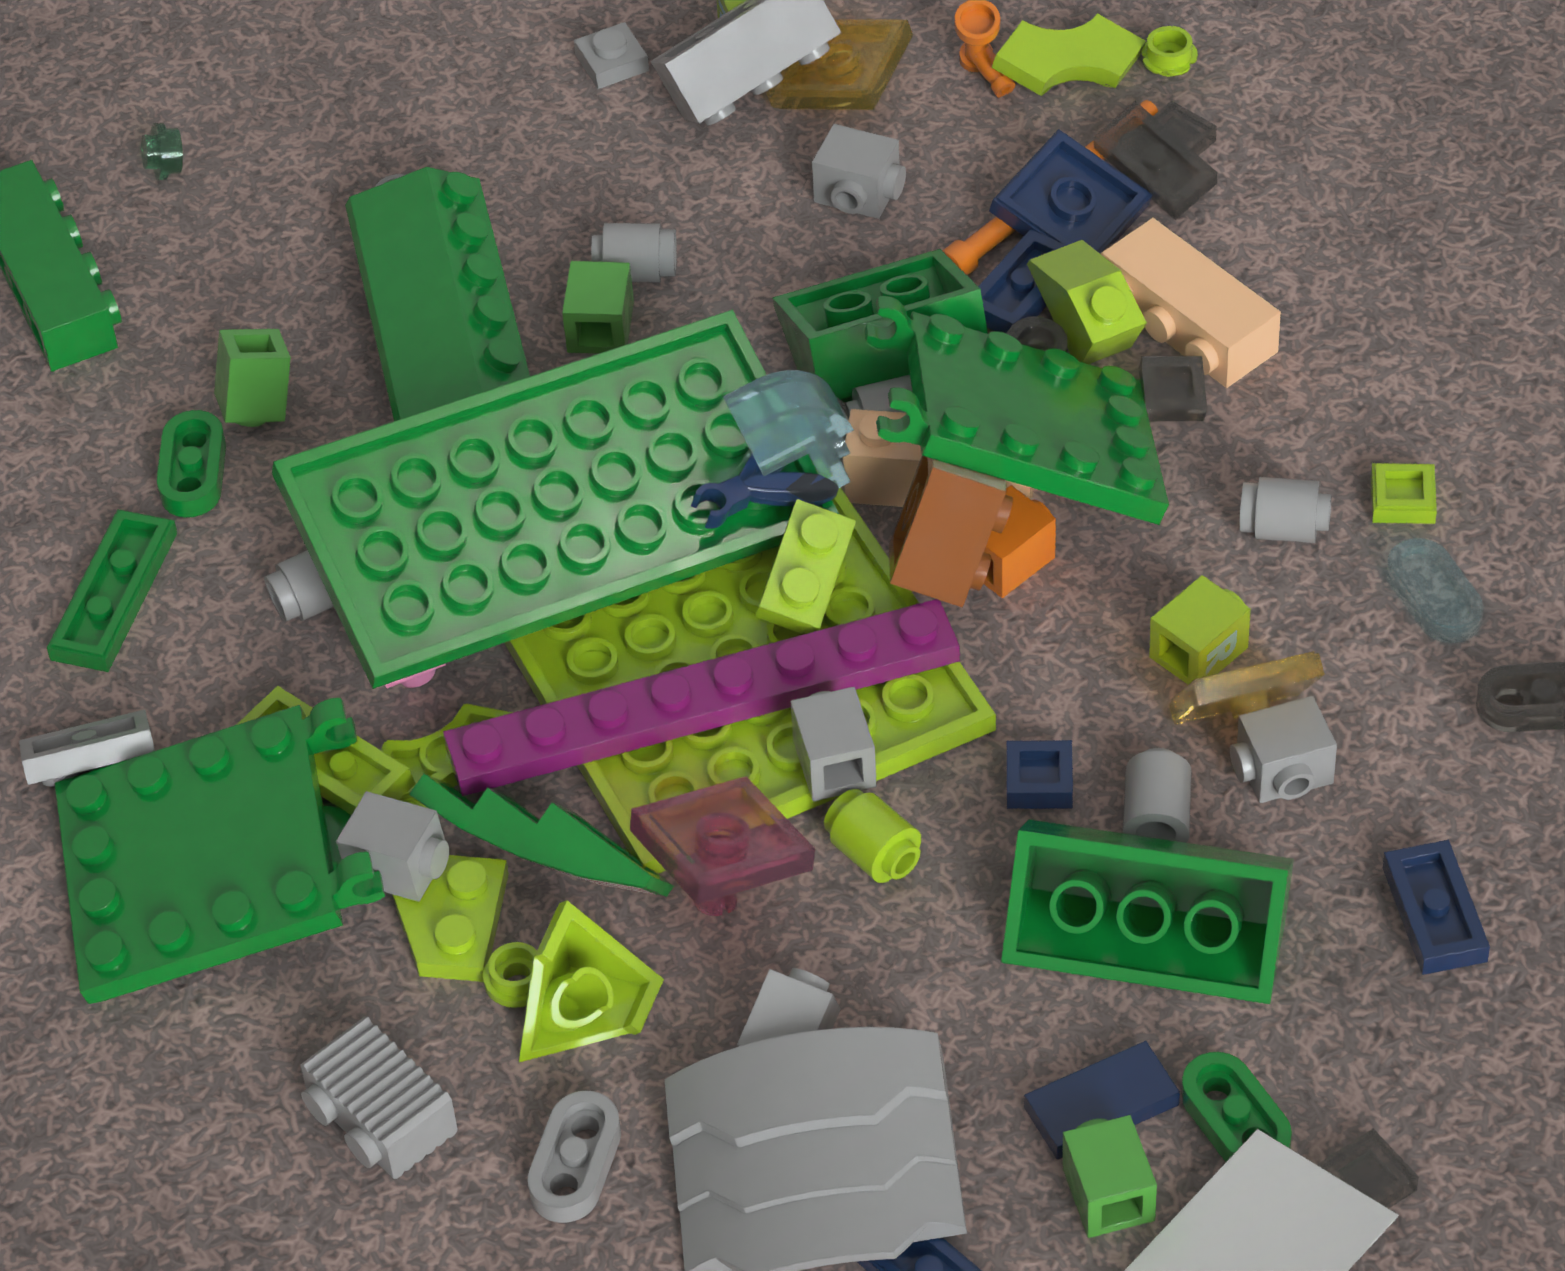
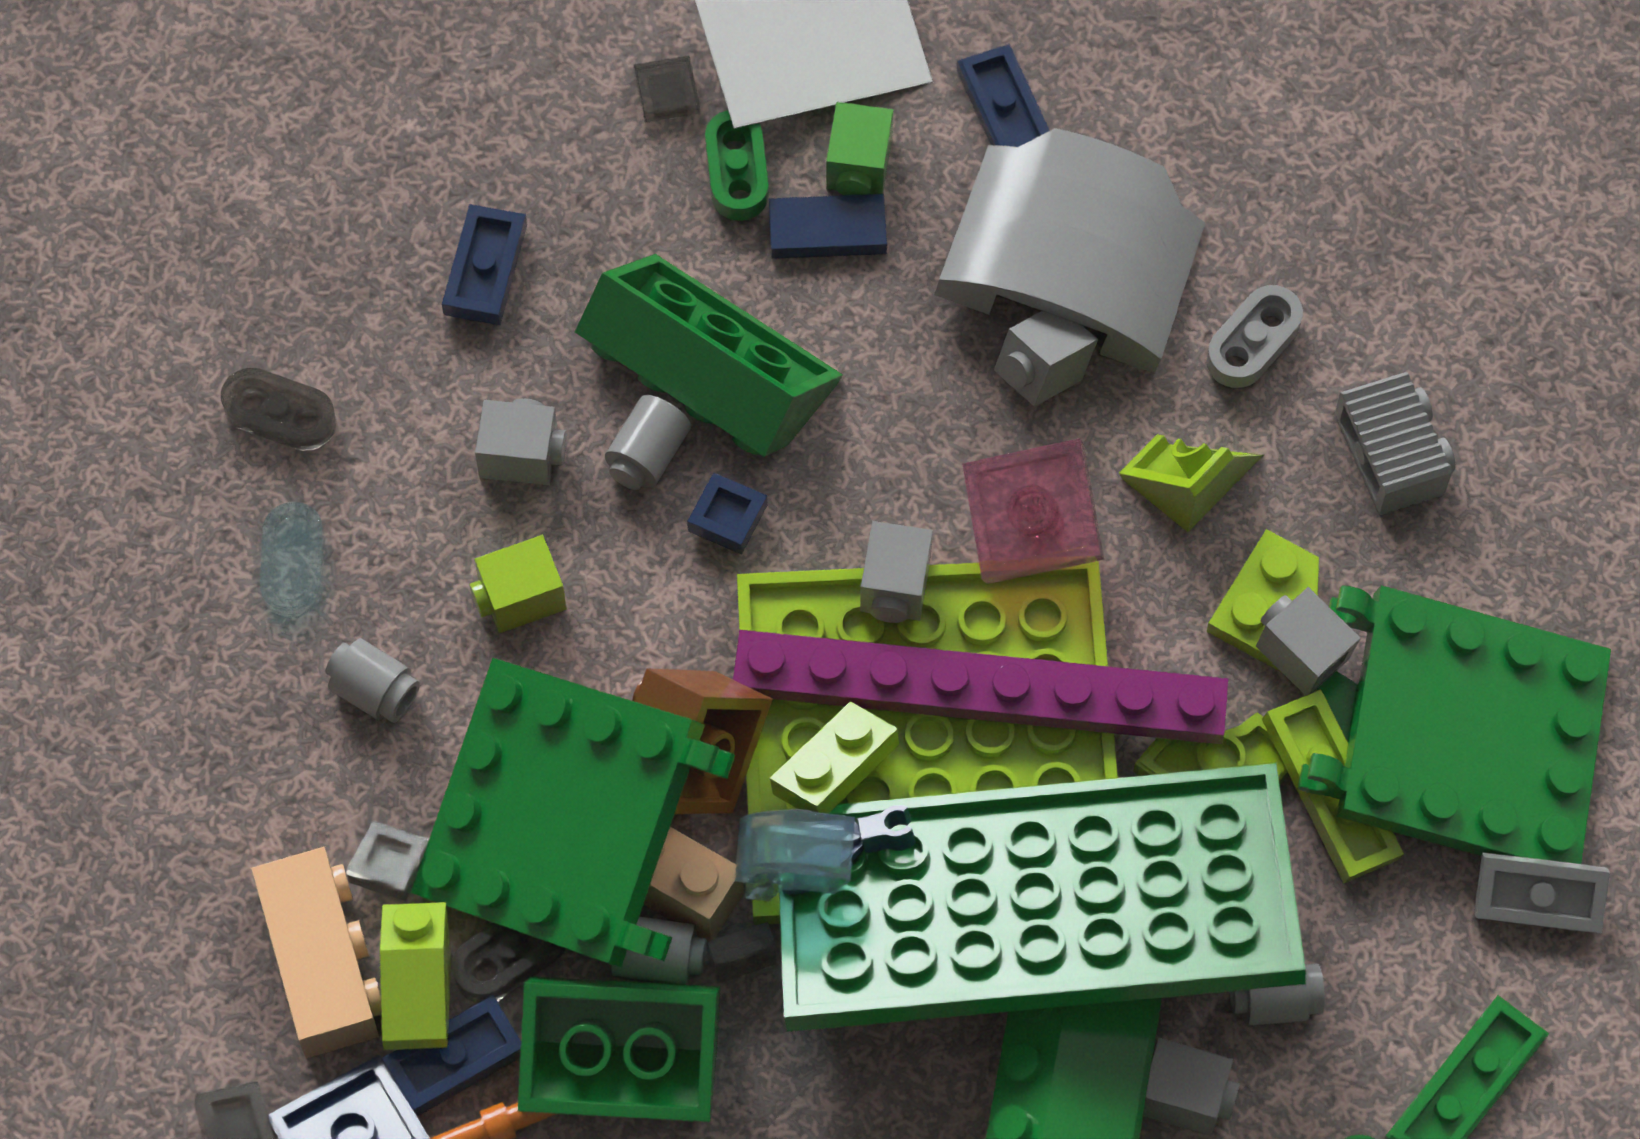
camera: 160 degrees left, 15 degrees up
(505, 962) = (1241, 501): lime plate -> none
(555, 841) = (1166, 604): green slope -> none
(873, 835) = (892, 497): lime brick -> none
(1246, 688) = (524, 484): clear yellow plate -> none
(1403, 493) = (253, 670): lime tile -> none

